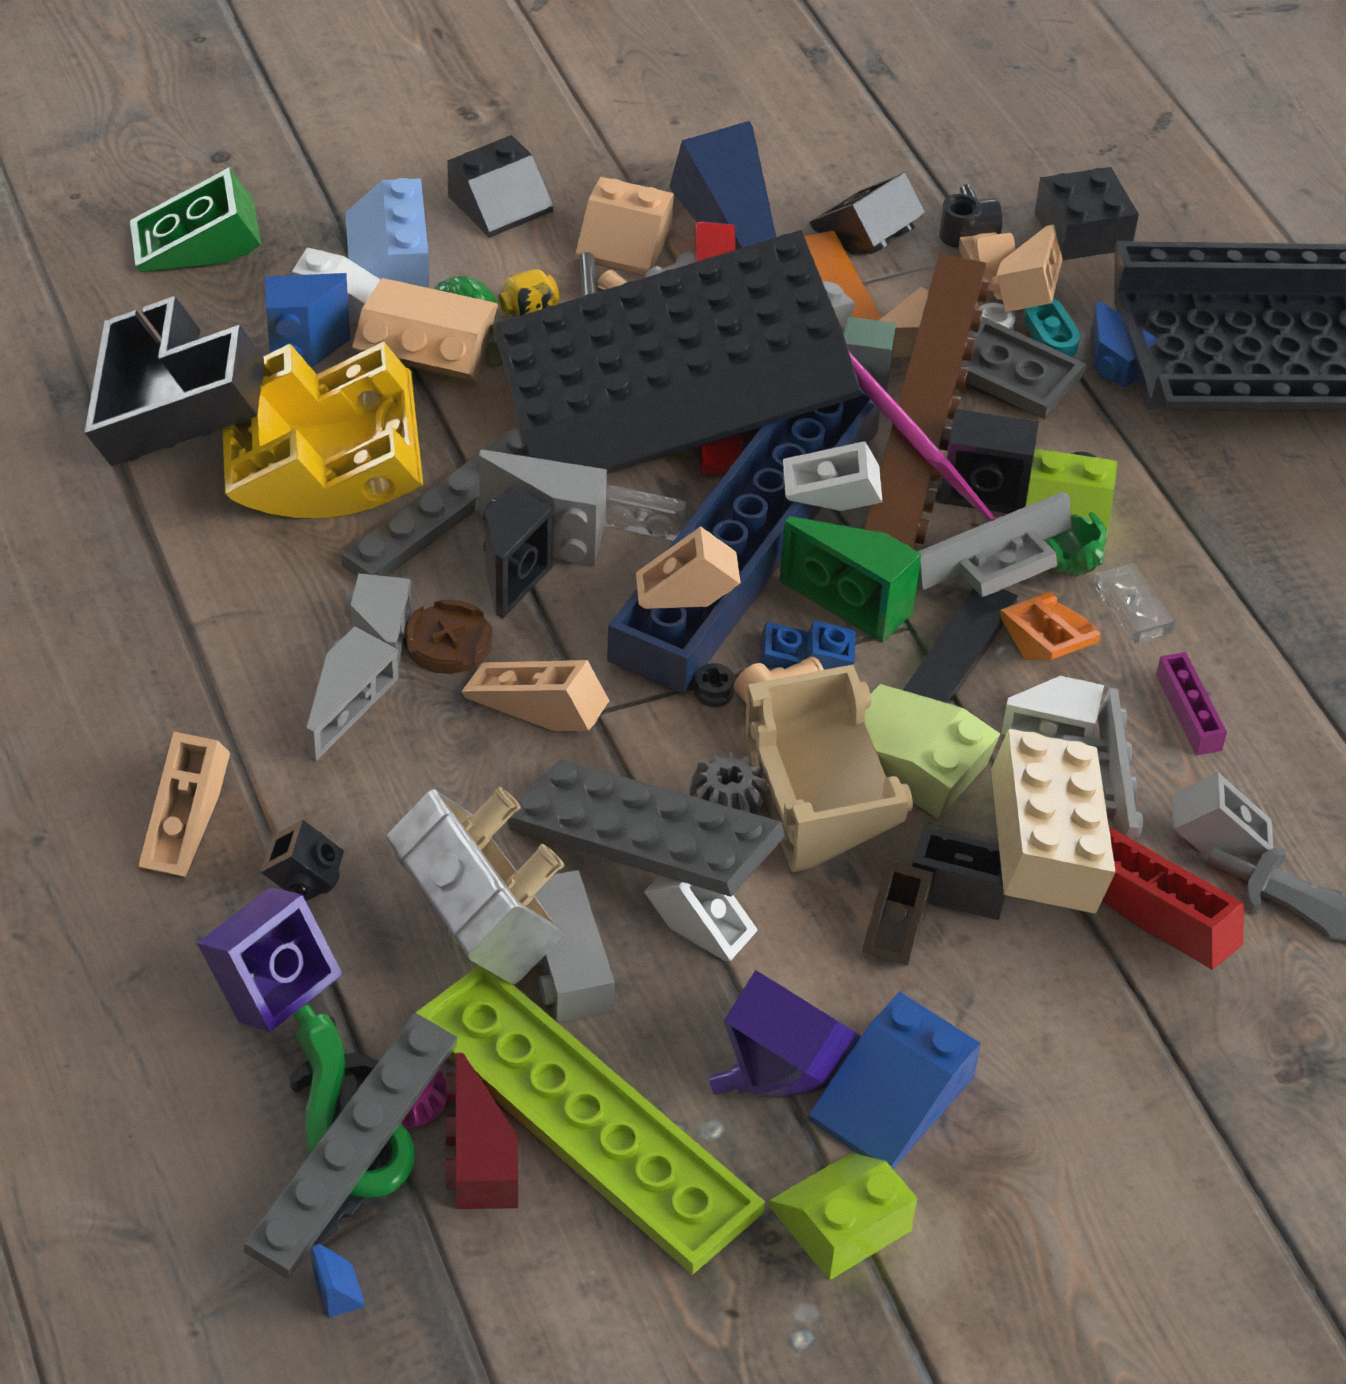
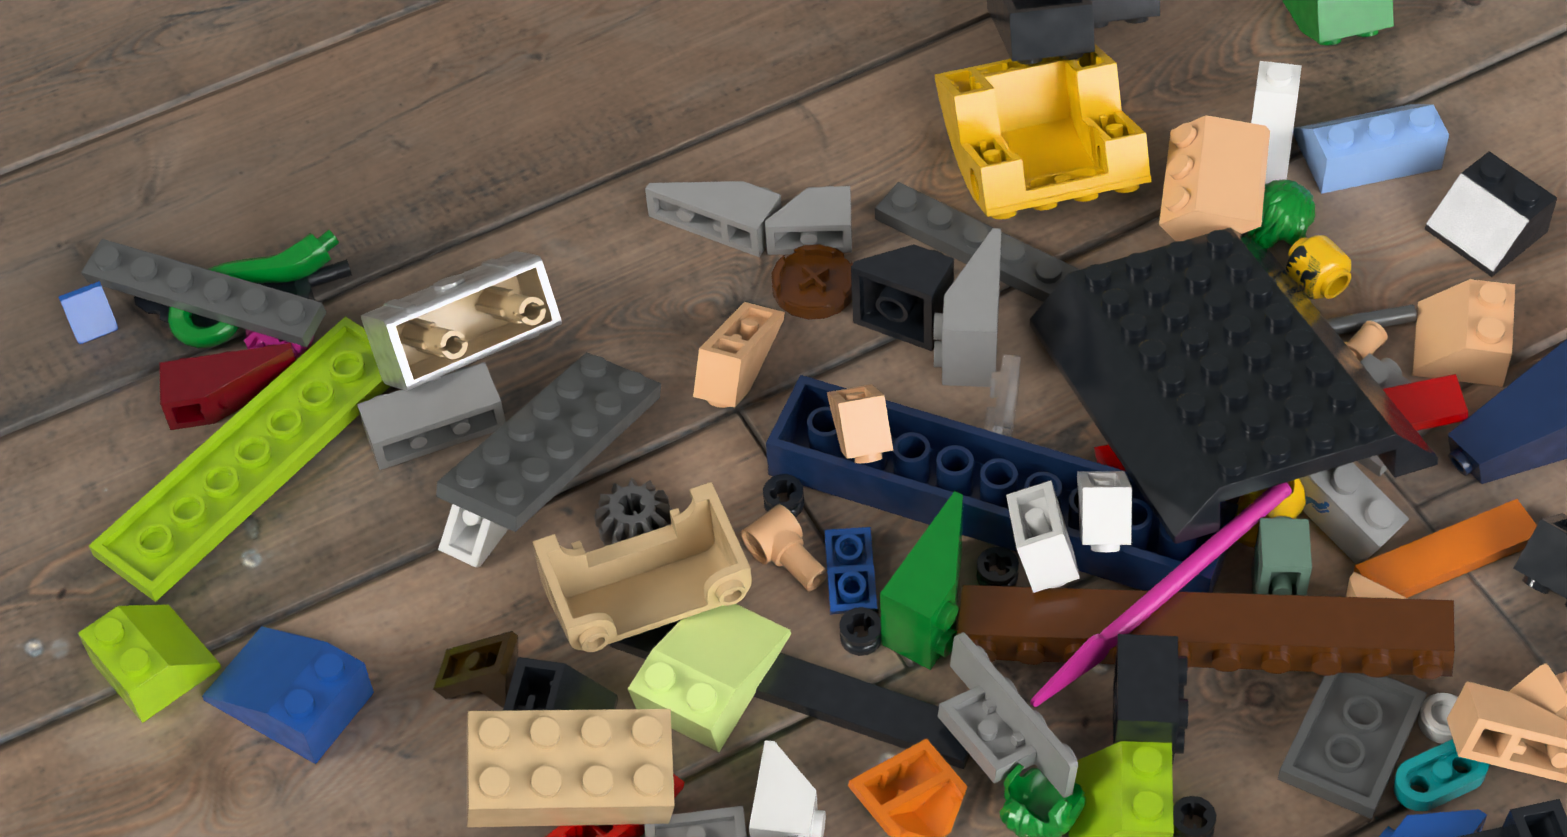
camera: 90 degrees right, 5 degrees up
(183, 803) = (575, 127): light nougat slope -> none
(270, 958) = (381, 201): dark purple piece -> none
(303, 861) = (512, 202): black brick -> none
(308, 314) = (1193, 78): blue slope -> none
(781, 1043) = (318, 579): dark purple piece -> none
(813, 427) = (1104, 509): none -> white slope
(883, 643) = (850, 640): none -> black bush

